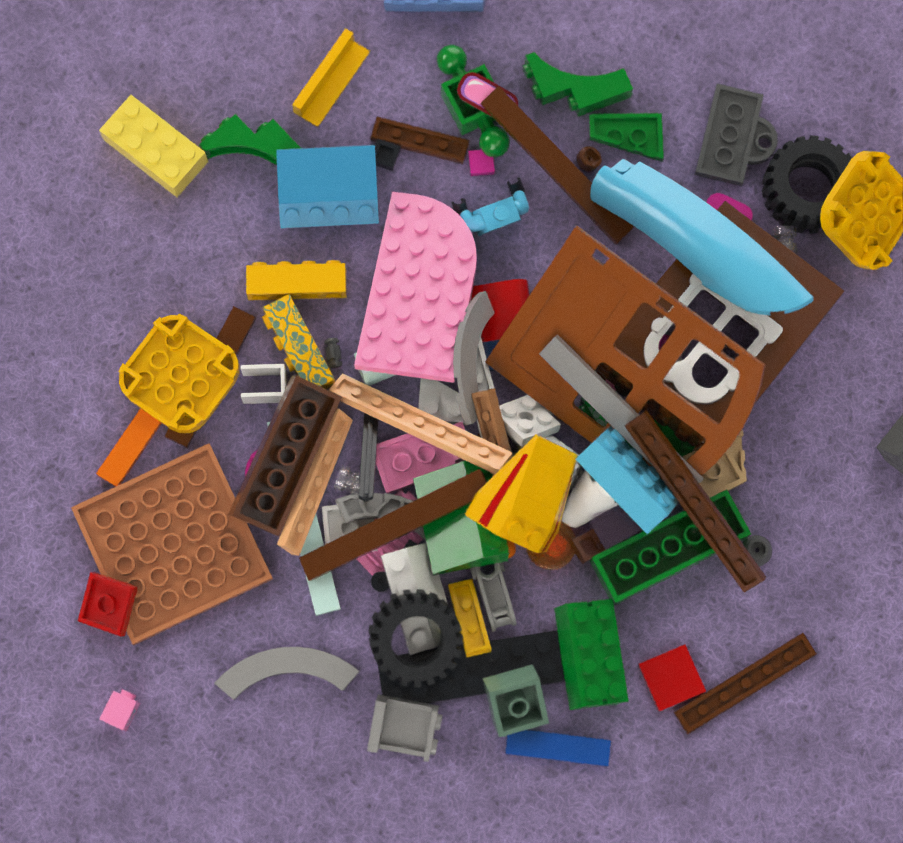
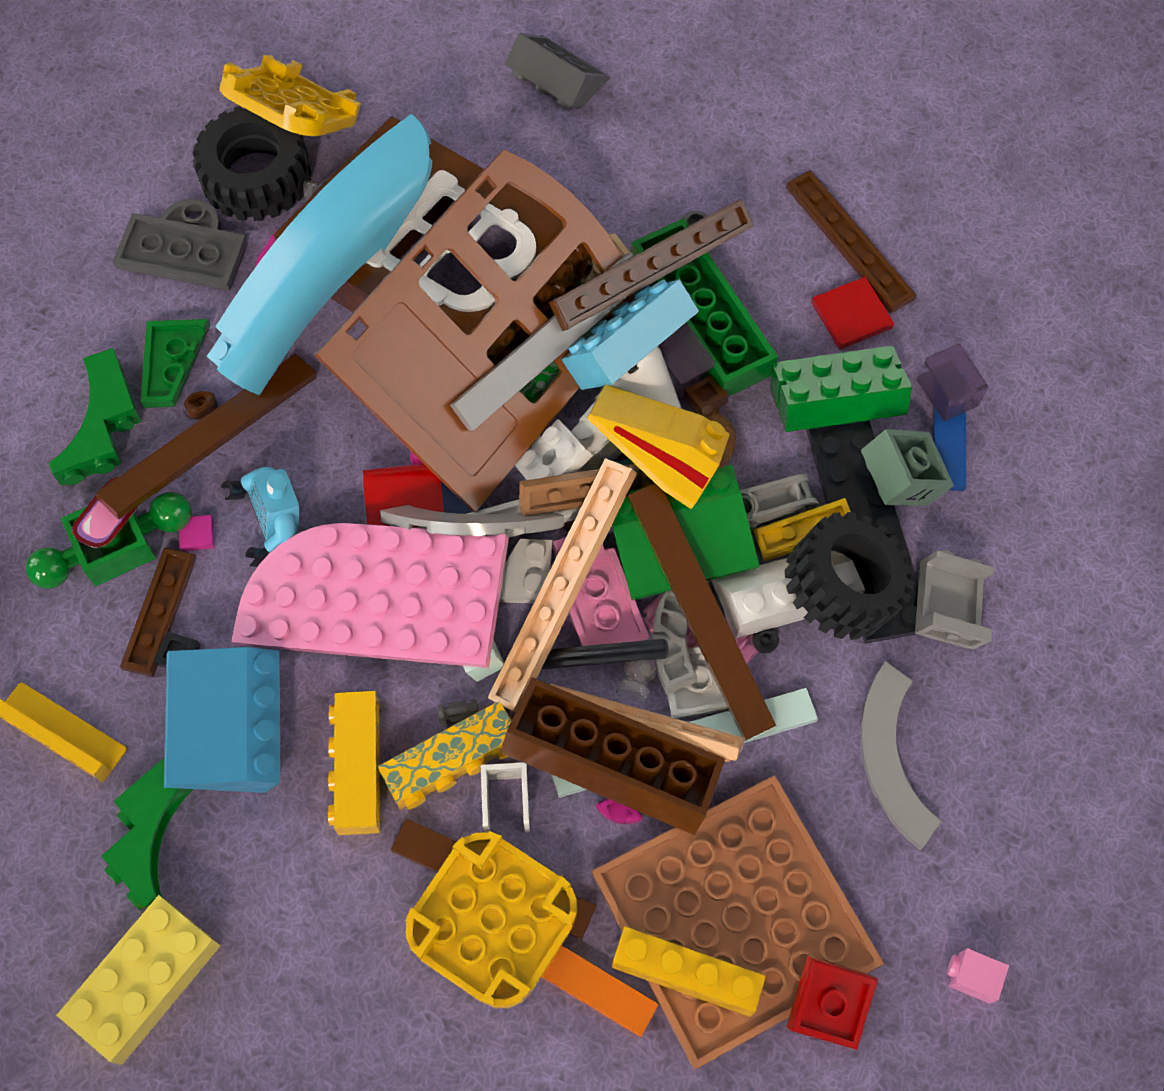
camera: 90 degrees left, 10 degrees down
(131, 502) = (688, 972): none -> yellow brick
(594, 747) = (952, 382): none -> clear purple piece

